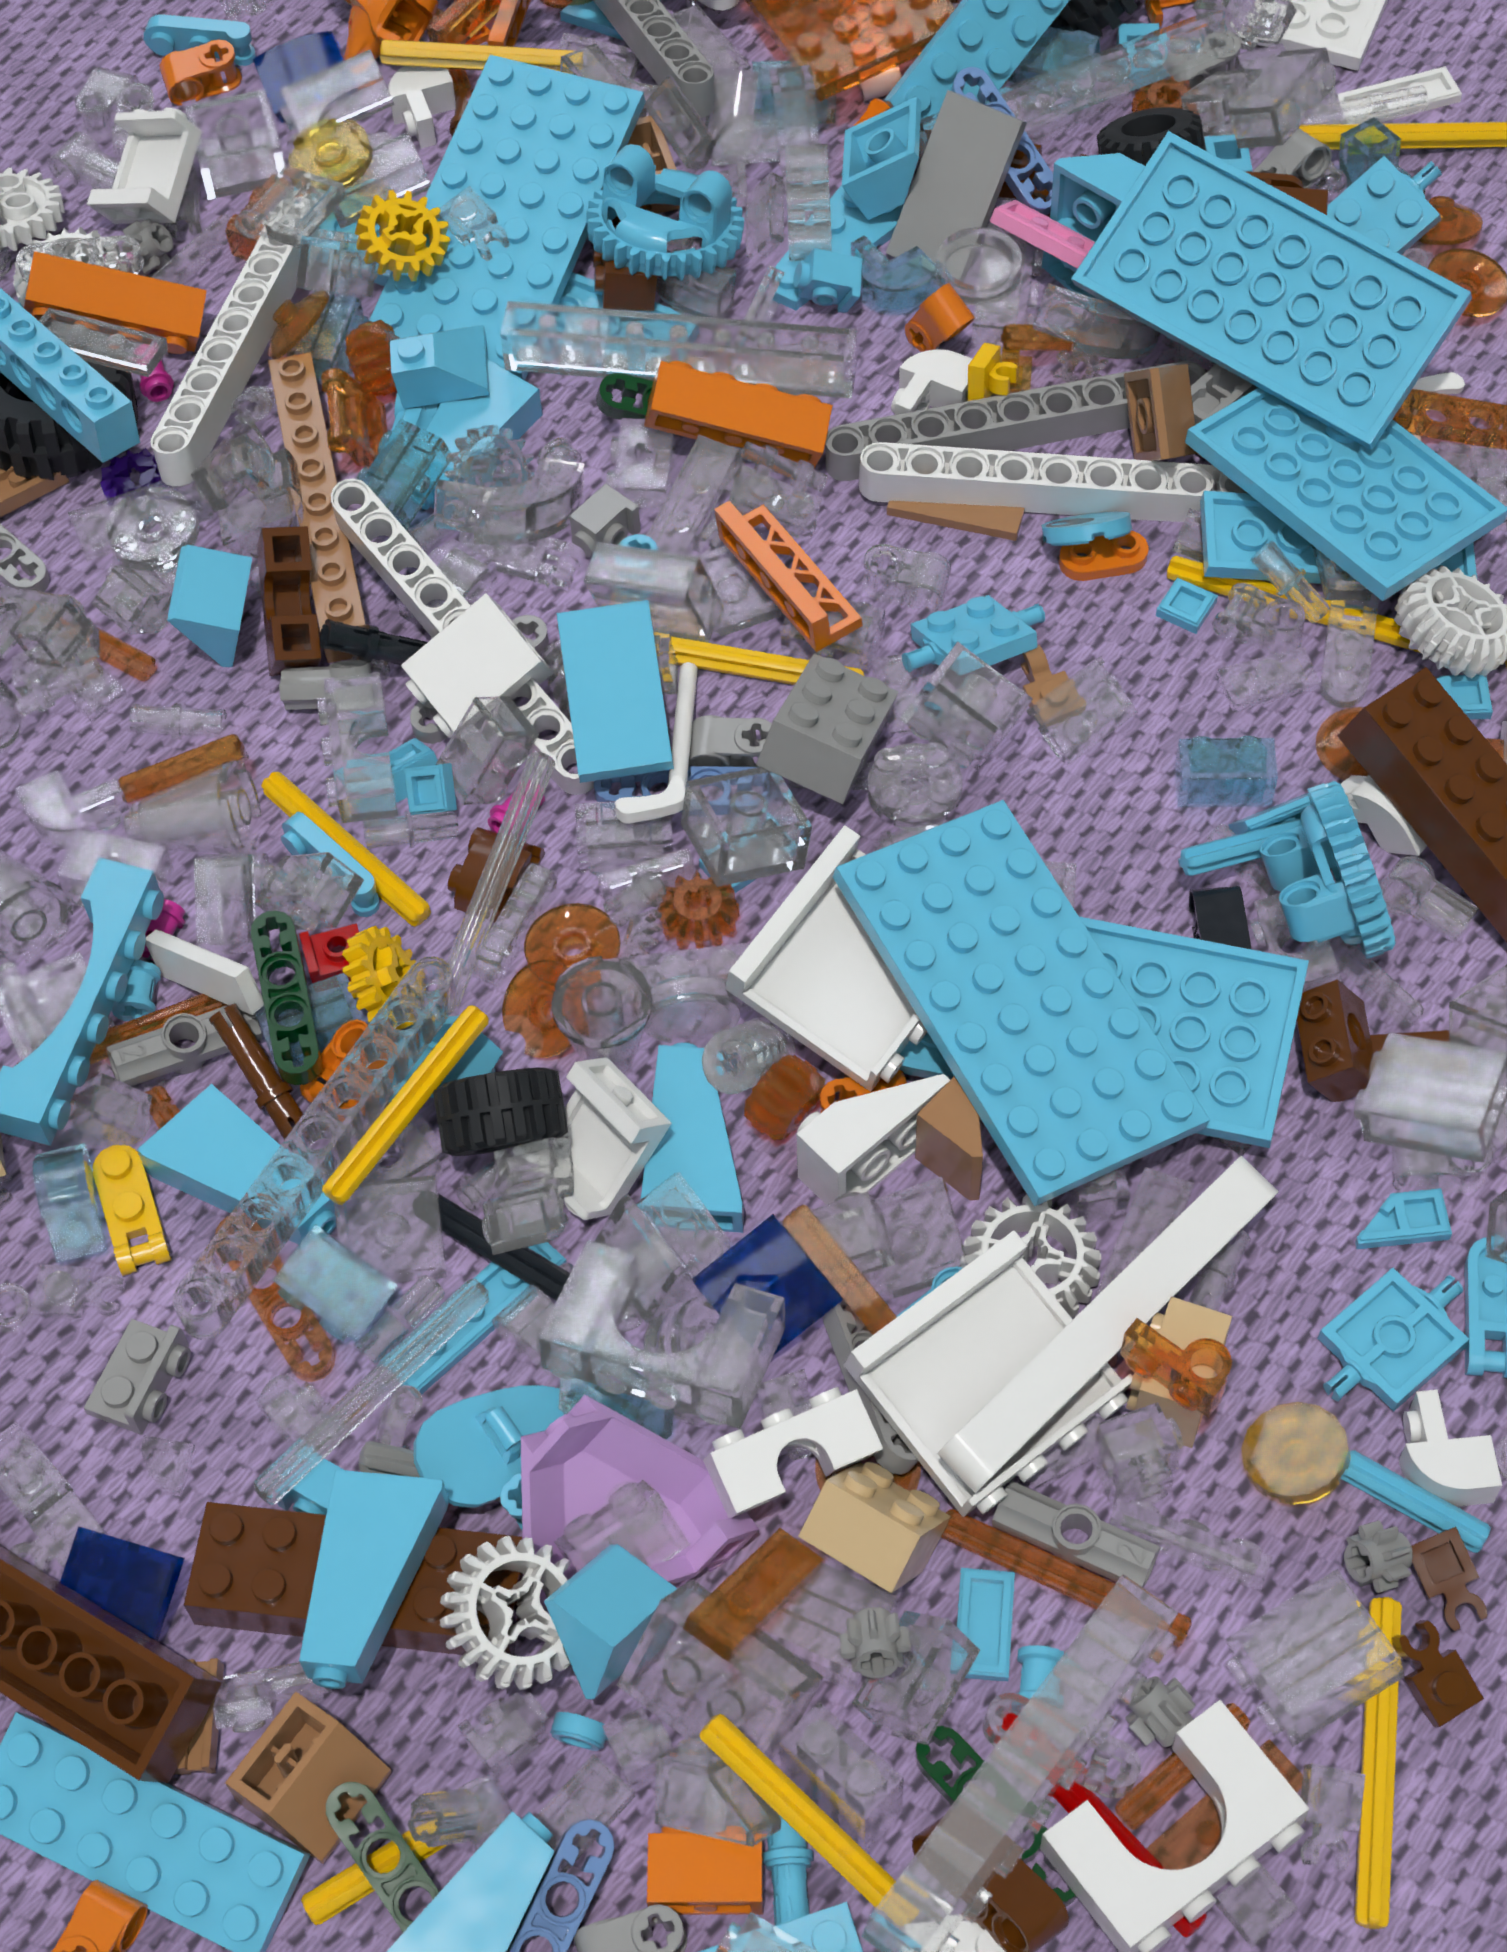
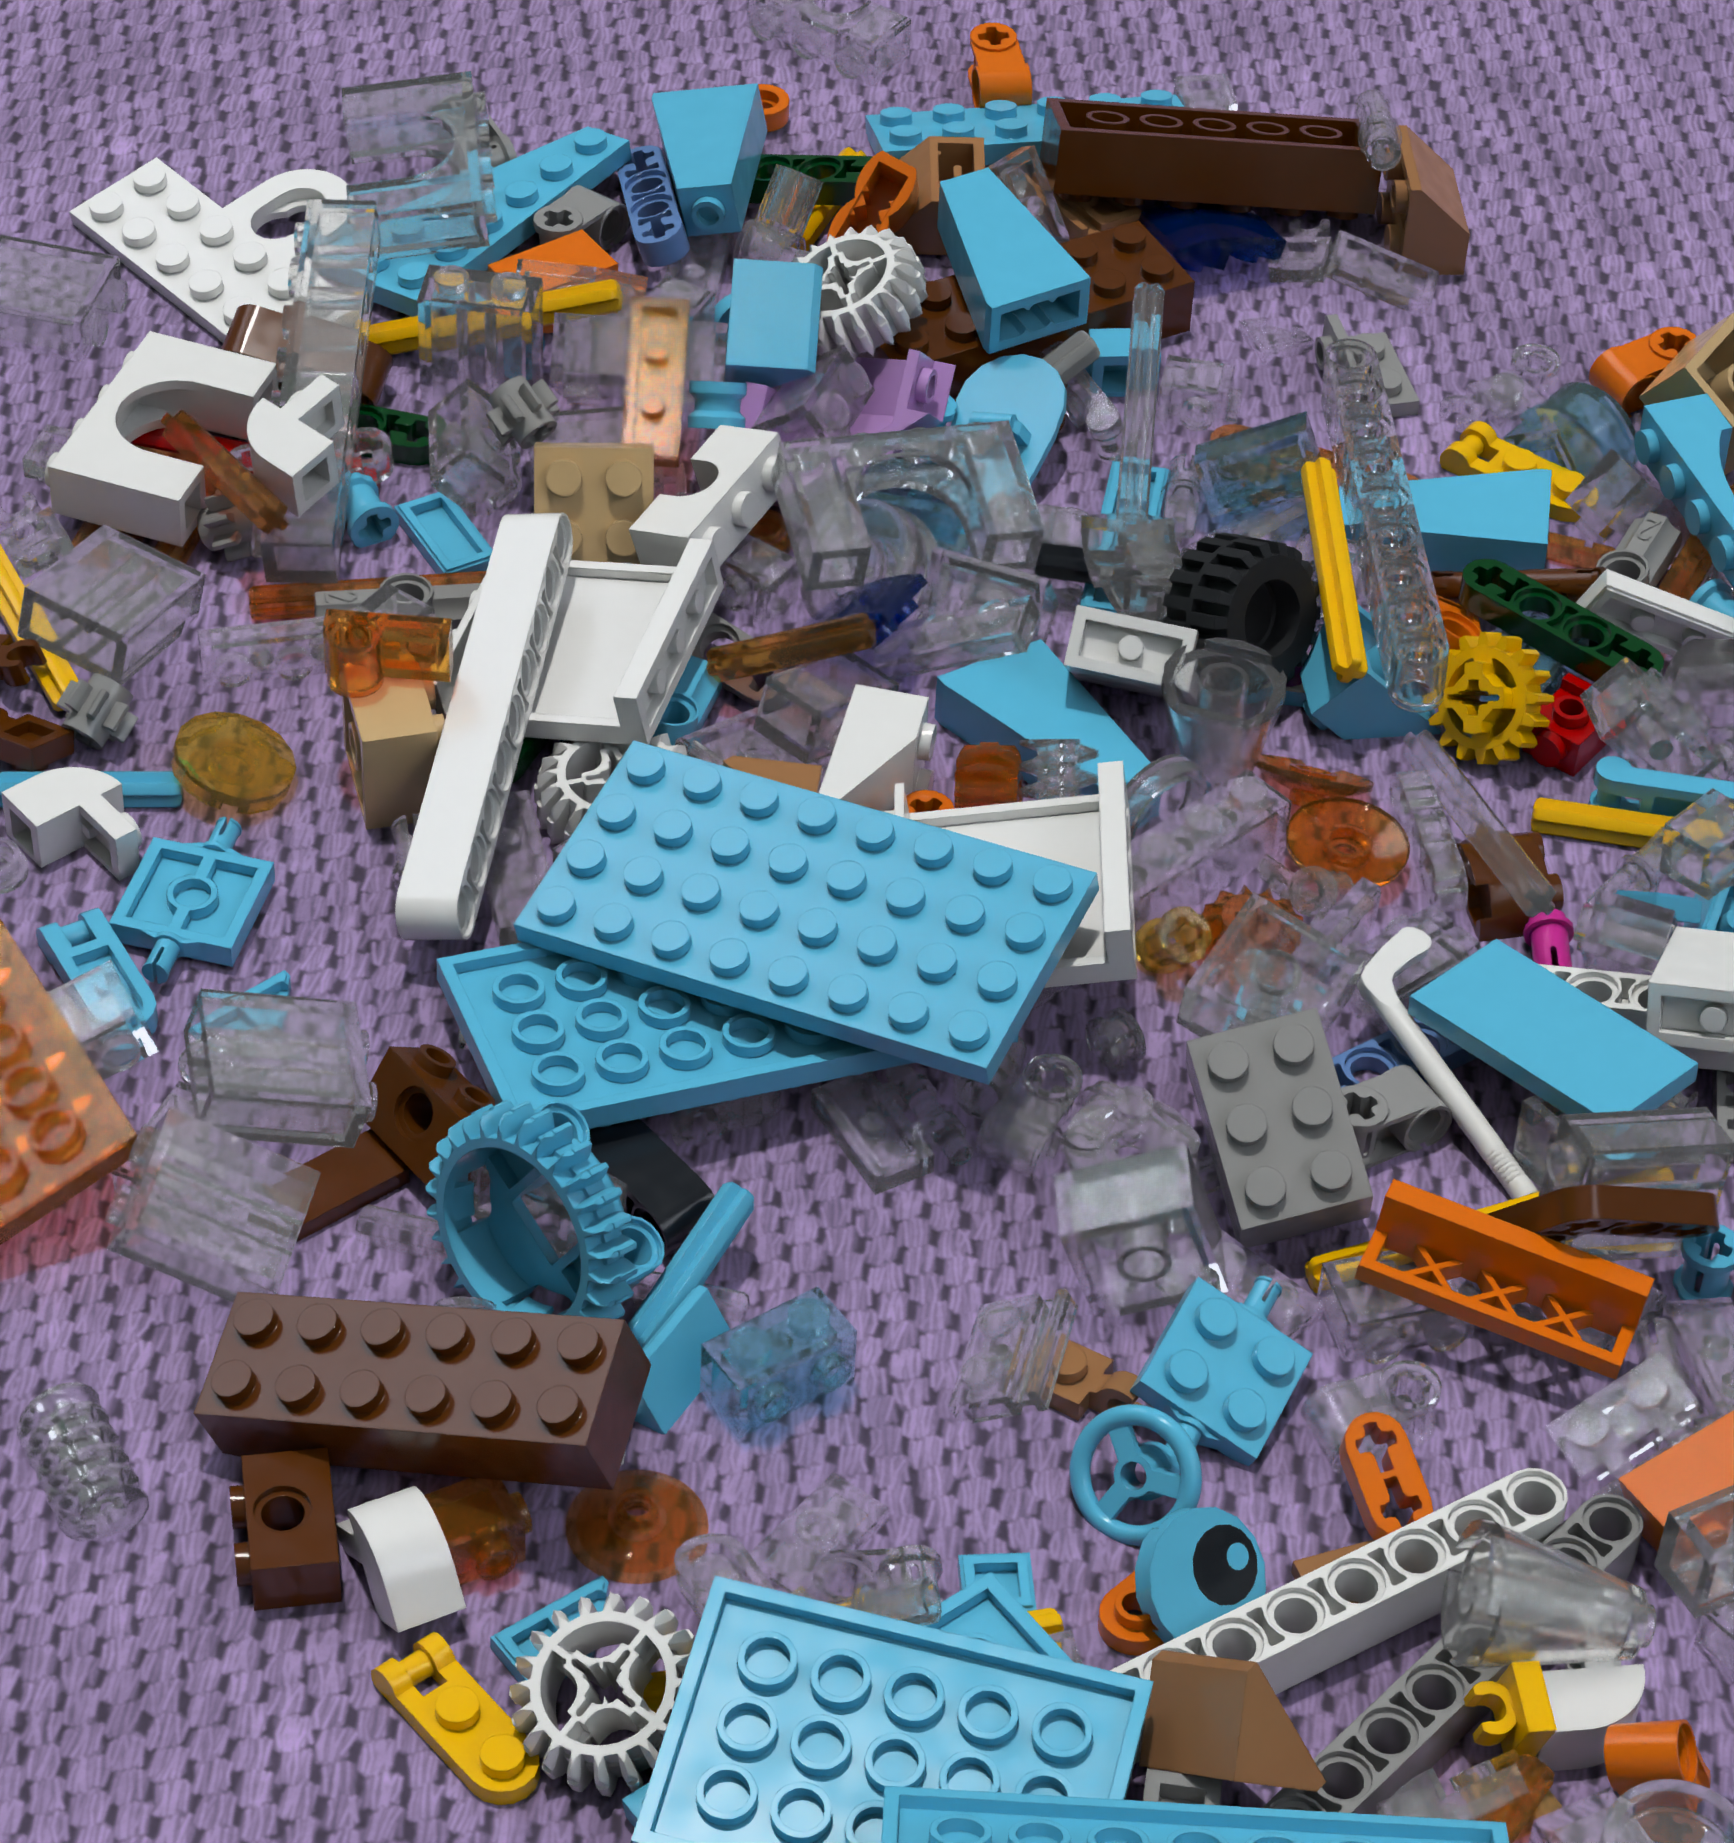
camera: 140 degrees right, 15 degrees down
(401, 1735) = (883, 197): none -> orange brick
(701, 1562) = (716, 404): none -> medium azure wheel
(716, 554) = (1616, 1212): none -> reddish brown beam
(753, 916) = (1191, 937): none -> clear yellow bush
(937, 519) = (1399, 1474): none -> orange beam
(951, 382) = (1537, 1605): none -> clear cone
(1070, 601) = (1157, 1459): none -> medium azure piece
(1121, 1659) = (293, 444): none -> white brick
(1160, 1722) = (225, 472): none -> clear orange axle

